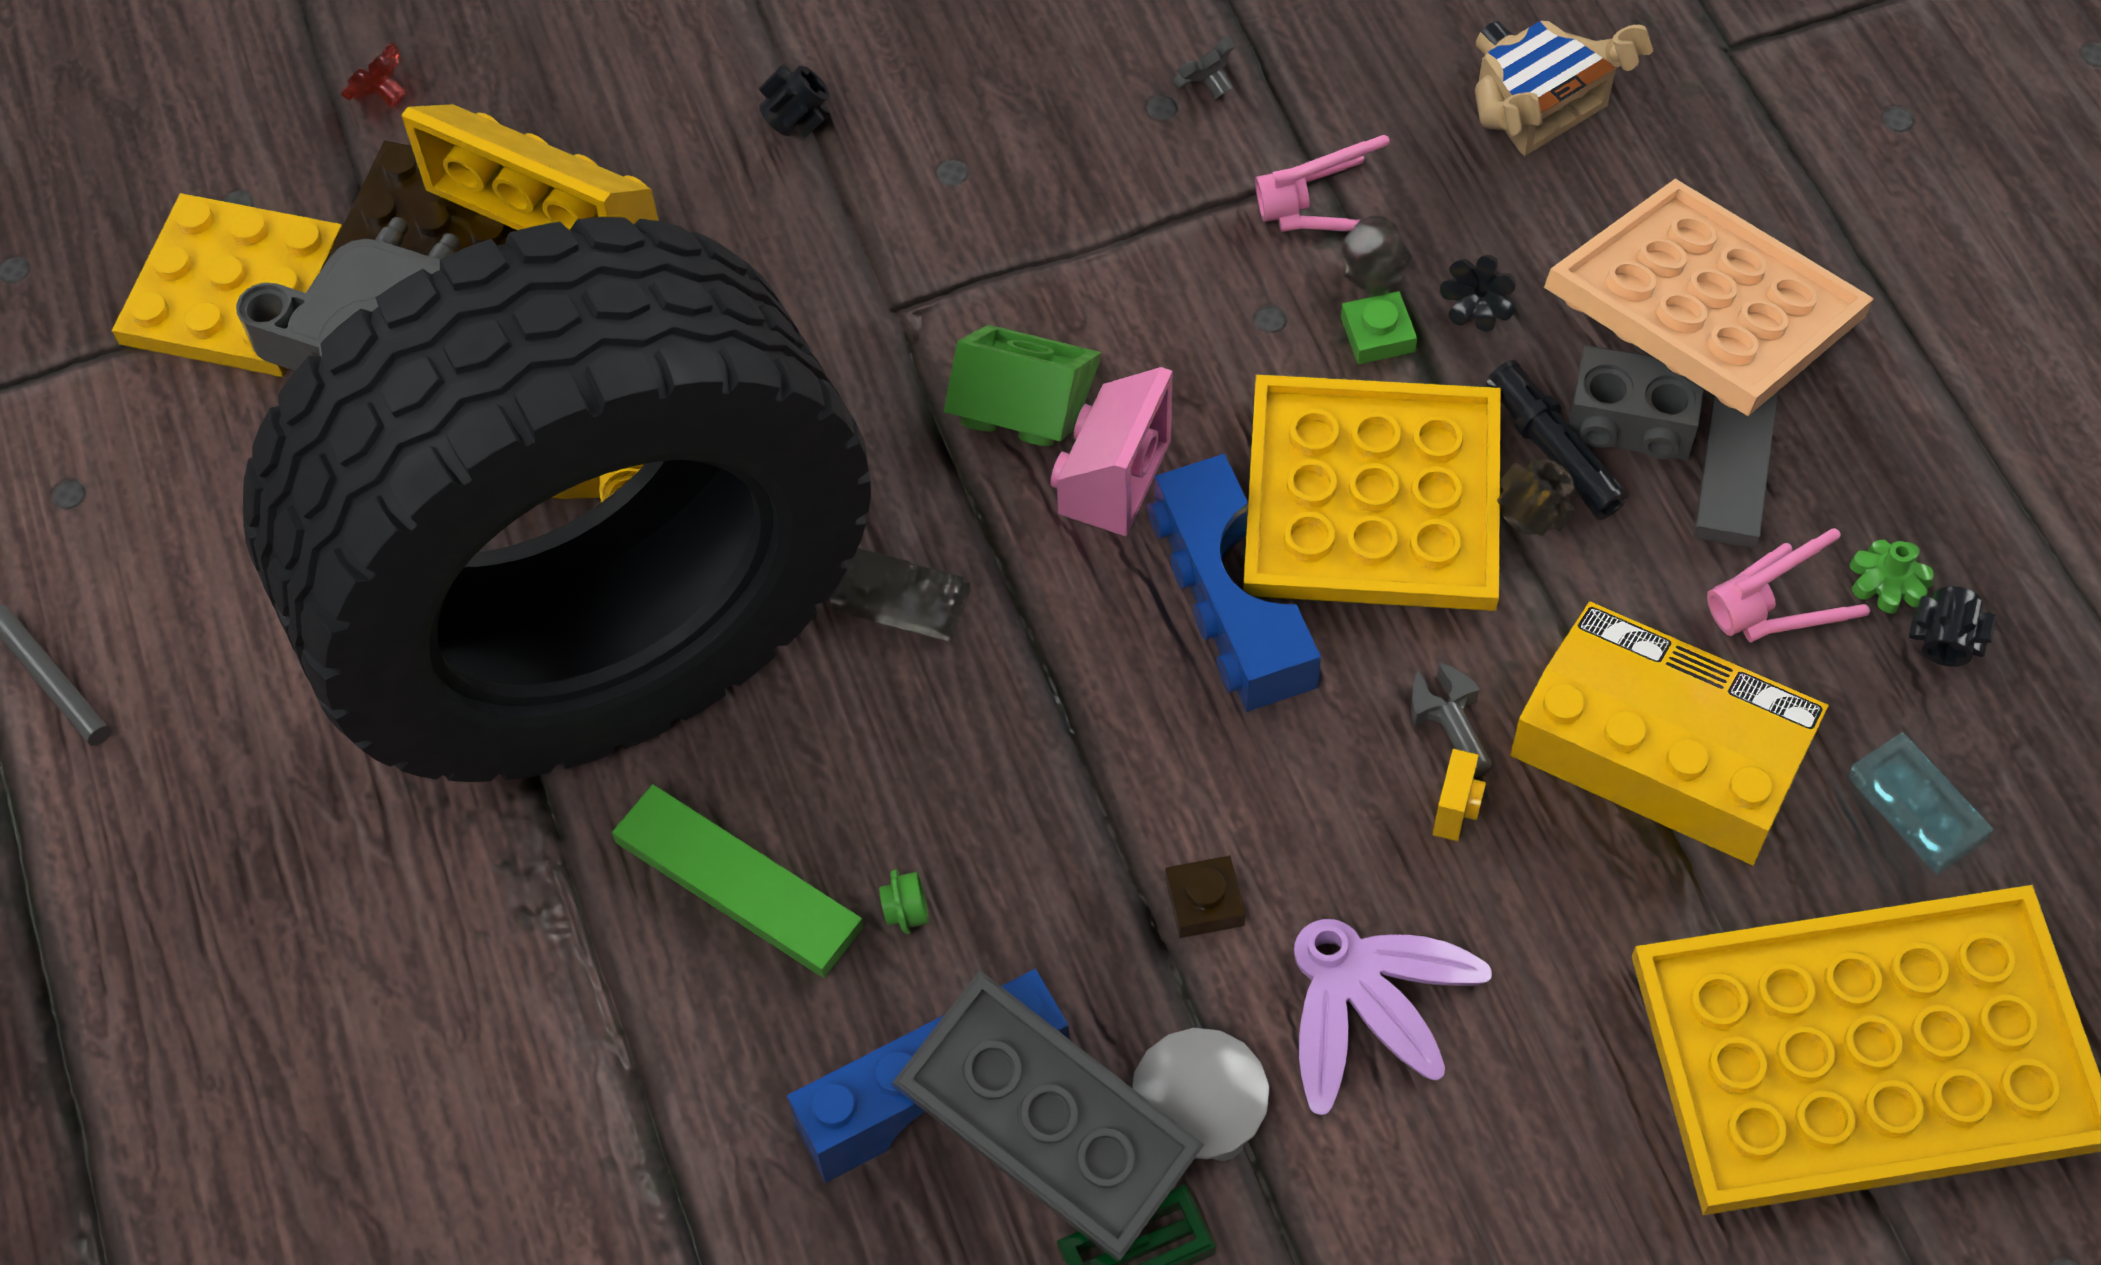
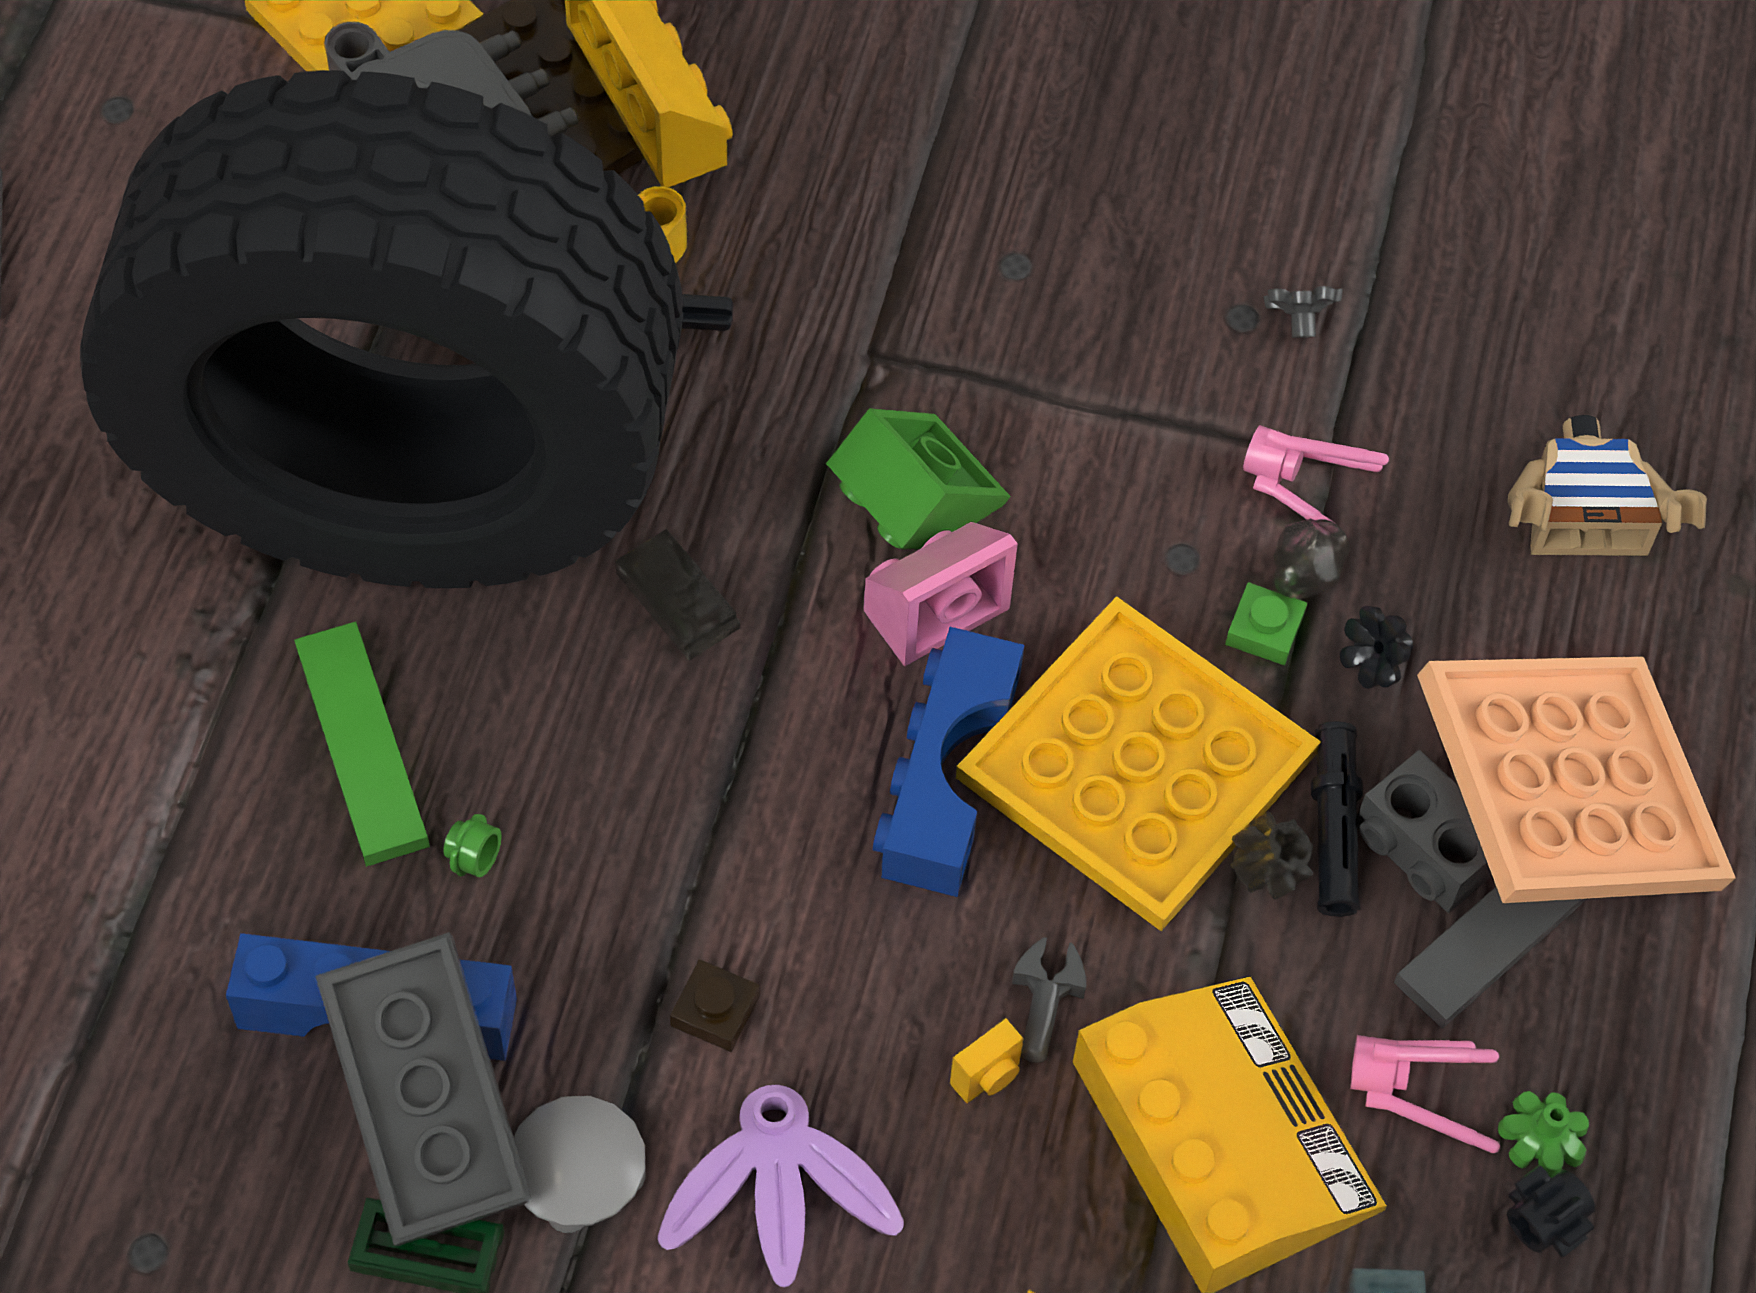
camera: 30 degrees right, 0 degrees up
(794, 100) = (922, 124): black gear -> none

